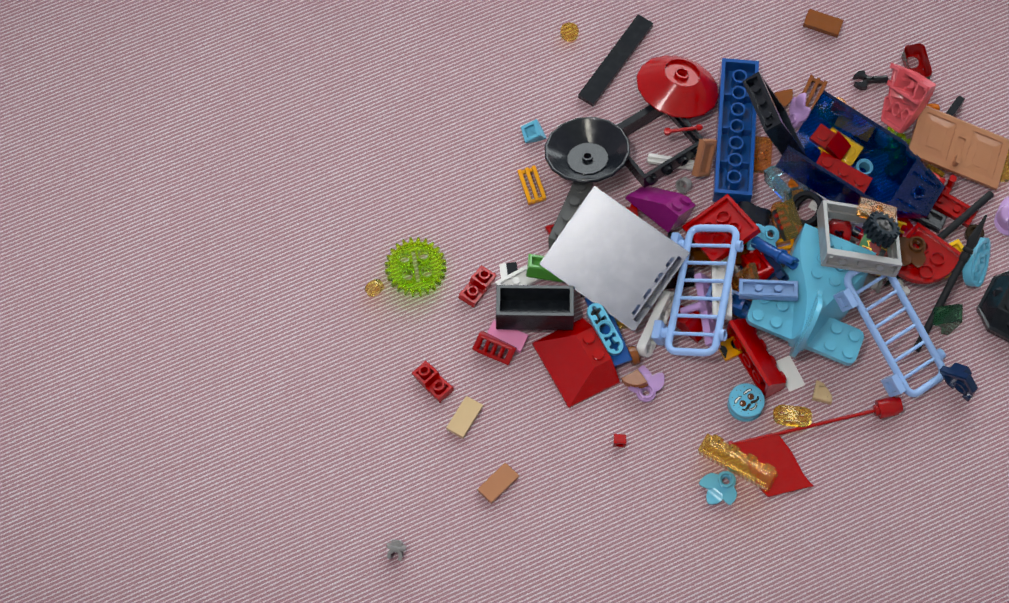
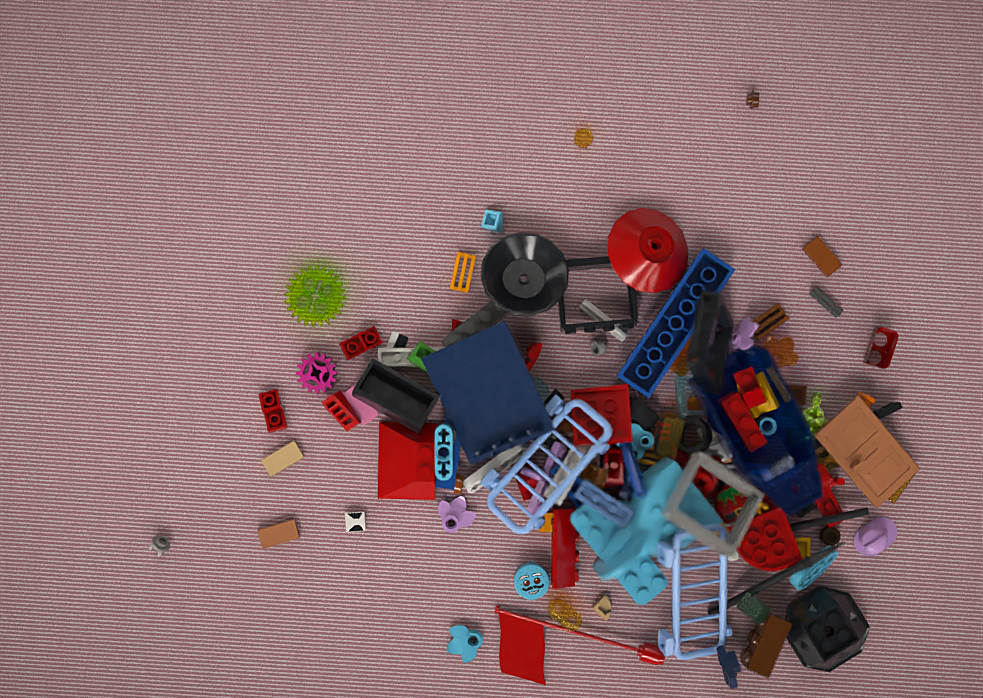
camera: 30 degrees right, 20 degrees up
(374, 287) = (268, 296): clear yellow tile -> none
(455, 336) = (311, 361): none -> dark pink gear
(560, 436) = (355, 521): none -> white tile
(615, 60) = (609, 189): black tile -> none
(619, 440) = (404, 552): red piece -> none
(634, 379) = (446, 509): tile -> none
(662, 206) = (563, 359): magenta slope -> none
(667, 131) = (610, 293): red hinge -> none
(704, 157) = (629, 335): nougat tile -> none
(737, 462) = (489, 634): clear yellow brick -> none
(785, 97) = (740, 312): dark orange tile -> none
(792, 375) = (587, 574): white sticker -> none
(848, 54) = (826, 302): none -> dark grey axle
(867, 80) = (828, 336): black bar -> none
(867, 206) = (744, 488): clear orange plate -> none
(881, 229) = (735, 513): black wheel -> none
(906, 98) = (848, 380): coral wedge -> none
(911, 254) = (755, 536): reddish brown plate -> none
(978, 342) = (765, 644): none -> reddish brown piece

